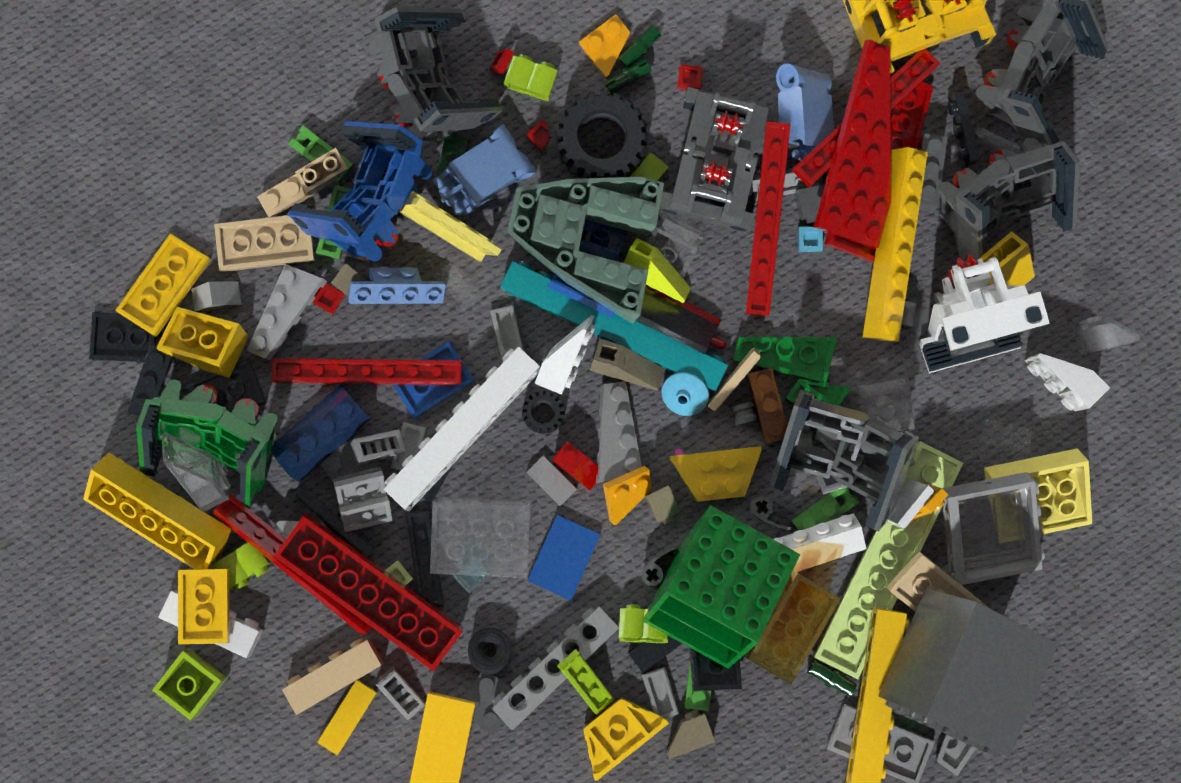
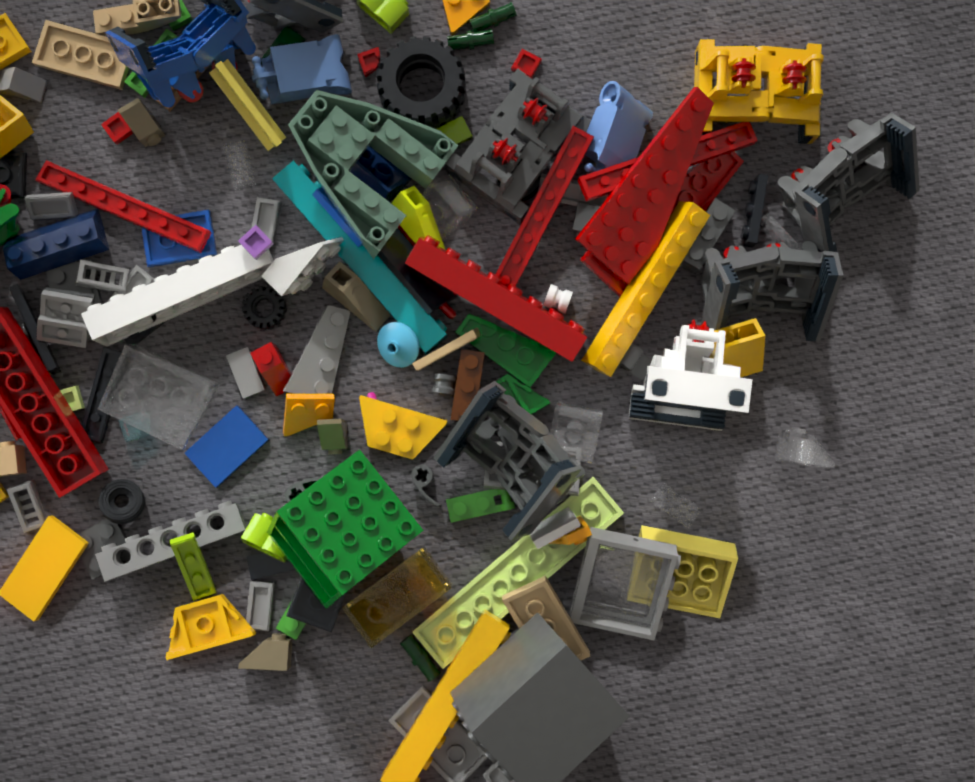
camera: 25 degrees right, 0 degrees up
(289, 298) = (83, 112): light grey wing -> none
(298, 399) = (51, 205): none -> light grey tile
(396, 287) = (178, 140): medium blue bracket -> none
(519, 354) = (255, 242): none -> medium lavender plate
(761, 312) = (495, 298): none -> red brick
(810, 239) = (571, 253): medium azure plate -> none
(815, 288) = (558, 298): none -> white wheel
(825, 541) = (458, 531): white brick -> none
(1073, 383) = (757, 484): white slope -> none

